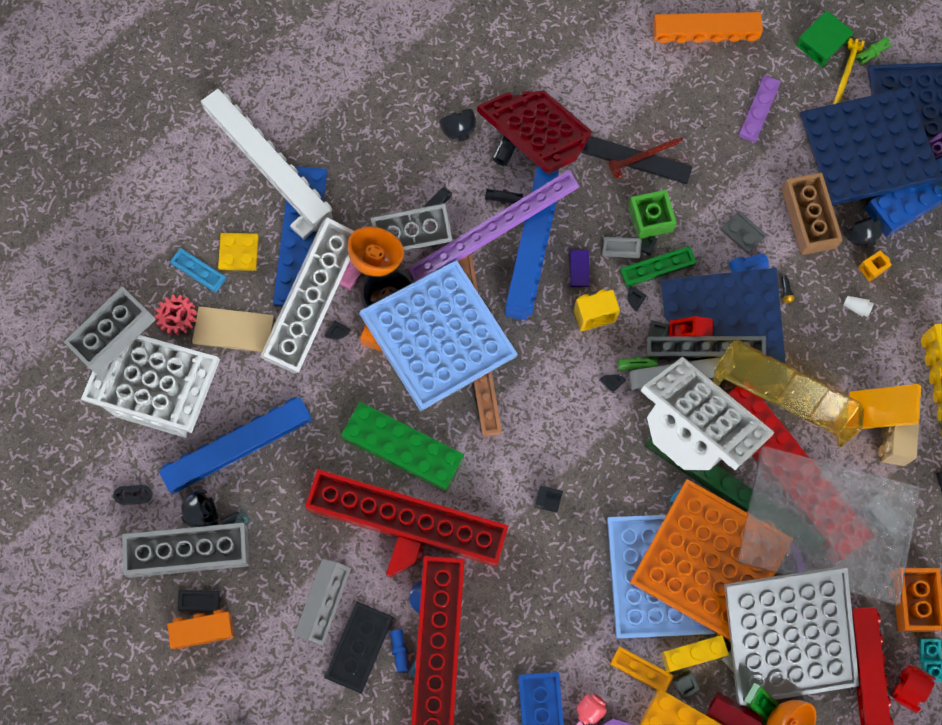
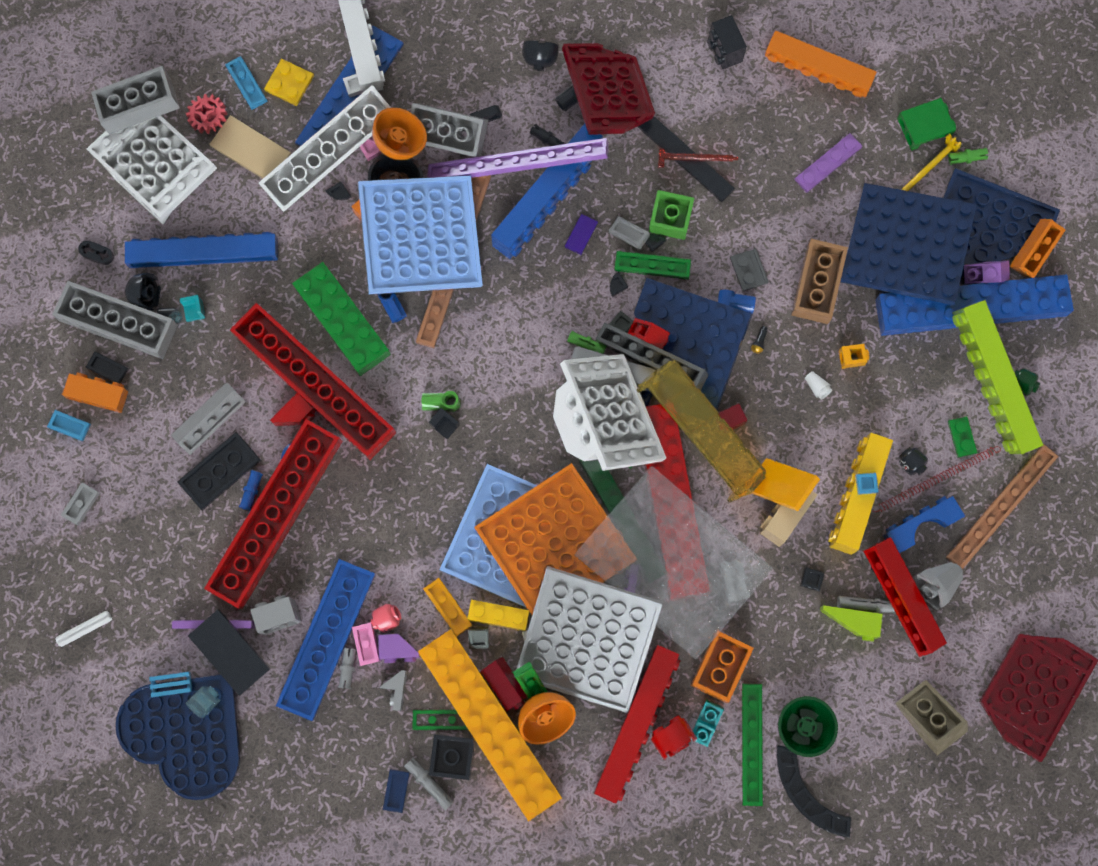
camera: 30 degrees right, 5 degrees up
(189, 675) = (69, 425): none -> dark azure tile
(255, 503) = (193, 308): none -> teal panel
(444, 414) = (393, 307): none -> blue piece
(532, 480) = (435, 401): none -> bright green piece
(596, 309) = (572, 277): yellow brick -> none
(612, 382) = (556, 349): black tile -> none
(619, 42) = (726, 42): none -> black brick
(805, 365) = (734, 416): none -> dark red brick
(865, 231) = (861, 320): black cylinder -> none

